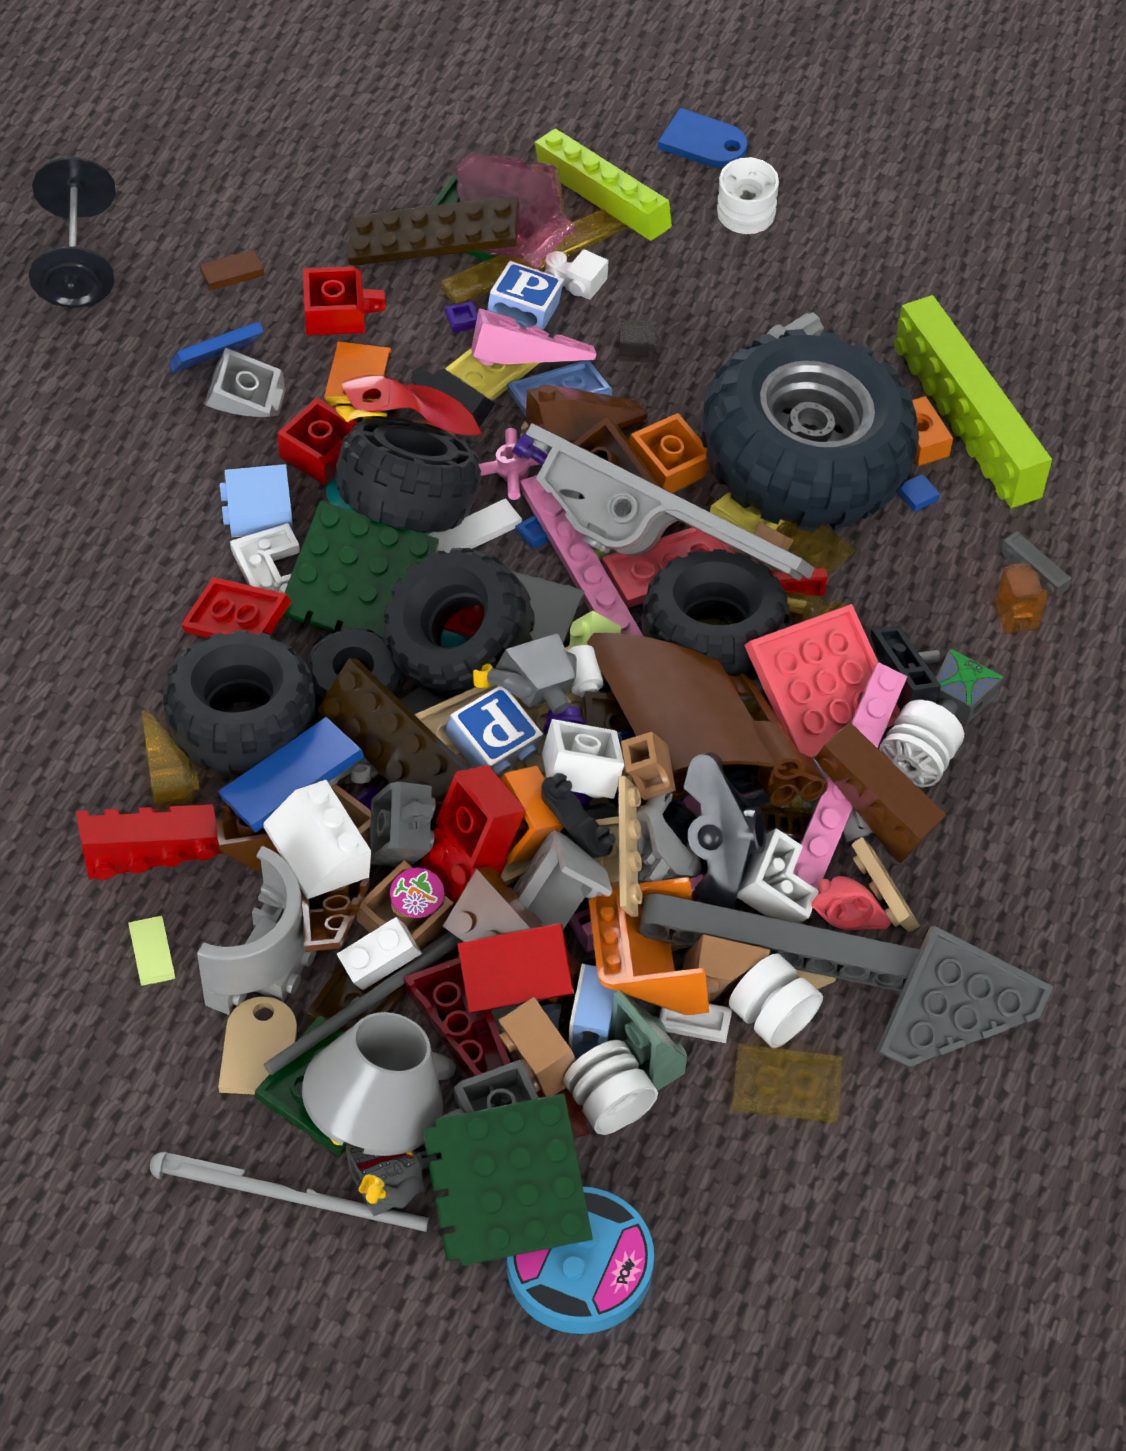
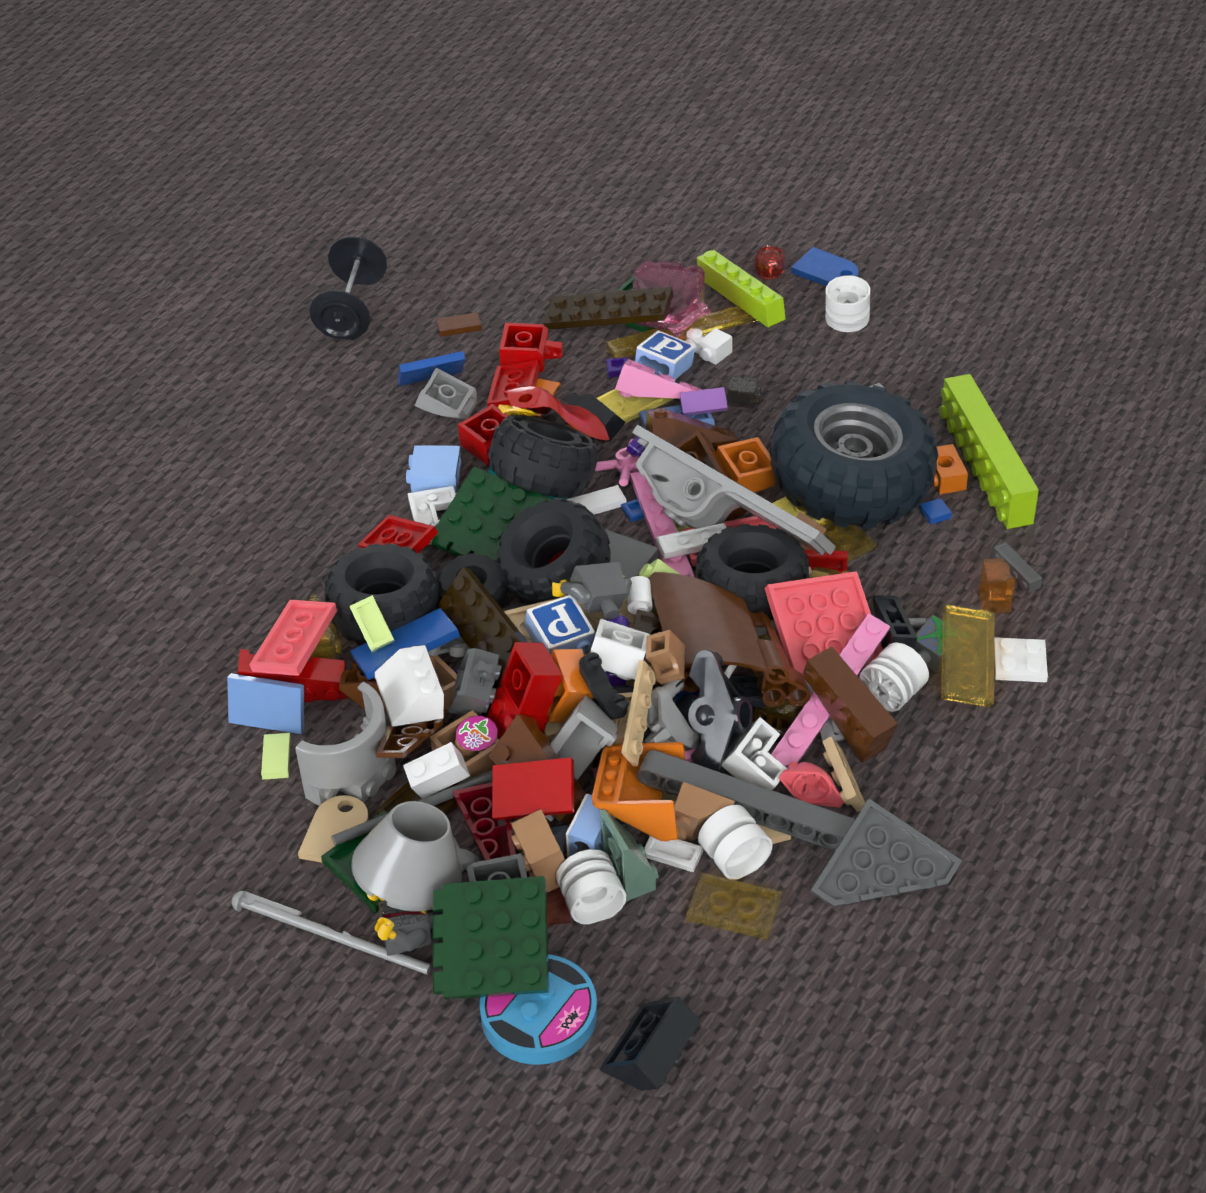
camera: 15 degrees right, 10 degrees down
(123, 880) = (265, 703): none -> medium blue tile
(145, 786) = (293, 637): none -> coral plate
(246, 754) = (372, 623): none -> yellowish green tile
(331, 357) = (510, 377): none -> red plate
(593, 364) = (703, 401): none -> medium lavender tile
(624, 574) = (686, 541): none -> white tile
(631, 143) = (769, 264): none -> clear red helmet
(729, 1286) = (652, 1043): none -> black slope
(1005, 701) = (968, 656): none -> clear yellow tile
(1064, 695) = (1020, 659): none -> white plate

